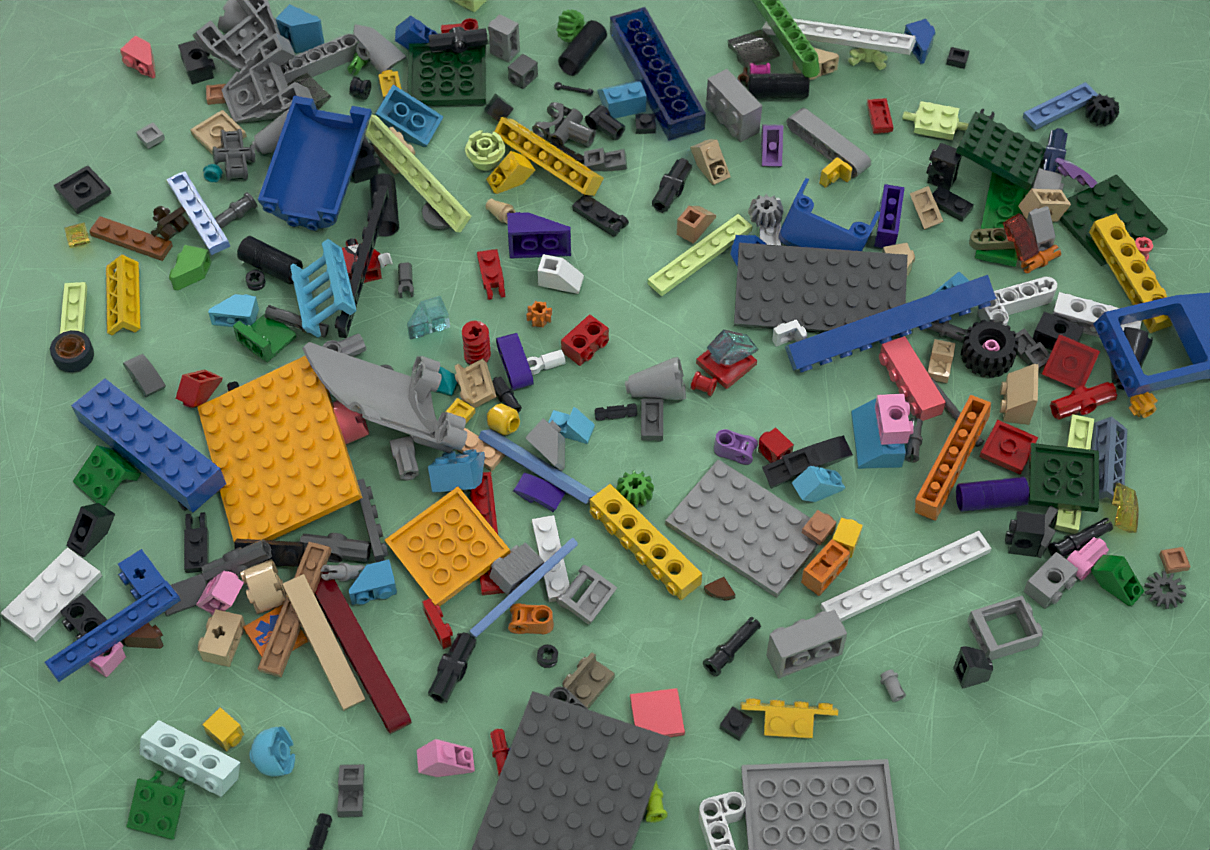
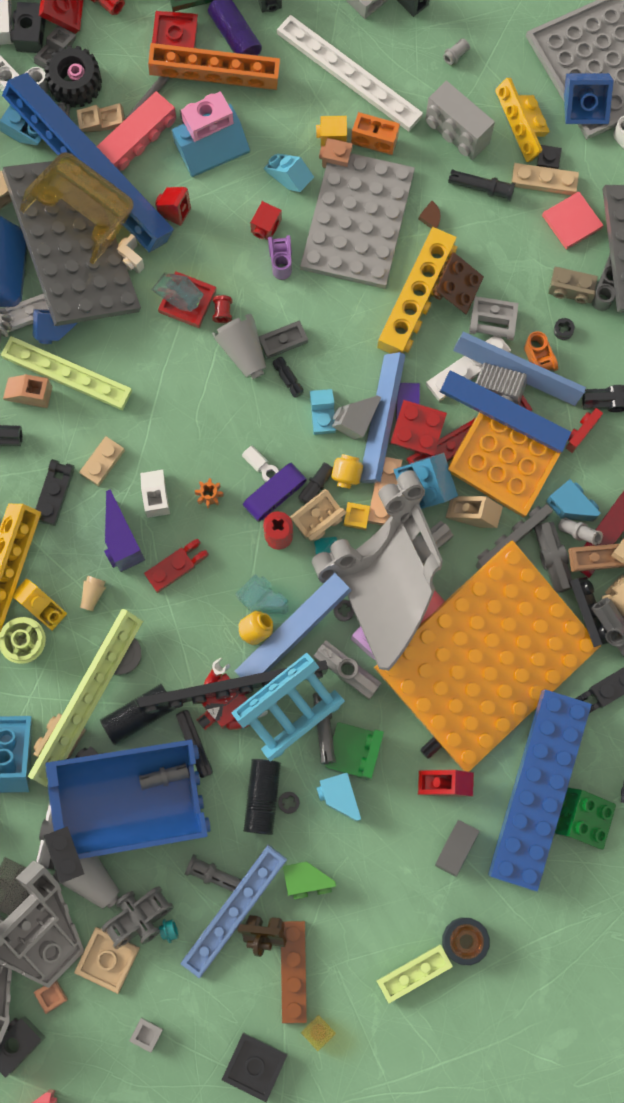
camera: 115 degrees left, 20 degrees up
(125, 294) = (369, 929): yellow fence -> none
(296, 97) = (63, 855): none -> black plate
(324, 196) = (163, 776): none -> dark grey pin
(335, 235) = (190, 732): none -> black axle
(387, 327) = (295, 627): none -> medium blue tile
(399, 306) = (255, 627): none -> yellow head
(405, 279) = (221, 647): dark grey bar -> none
(410, 502) = (475, 511): none -> tan slope
(484, 552) = (505, 411): none -> blue tile
(511, 485) = (418, 428): none -> red plate
(589, 335) = (218, 441): red brick -> none
(610, 255) = (102, 461): none -> tan plate
(632, 570) = (458, 283): none -> reddish brown hinge
(635, 488) = (370, 316): bright green gear -> none
(714, 709) = (545, 179): none -> tan plate
(781, 774) = (588, 98): none -> blue slope
(817, 455) = (270, 183): black slope -> none
(821, 379) = (174, 204): none -> red slope
(872, 285) = (87, 193): none -> clear yellow windscreen
(1020, 395) = (117, 33): tan slope -> none

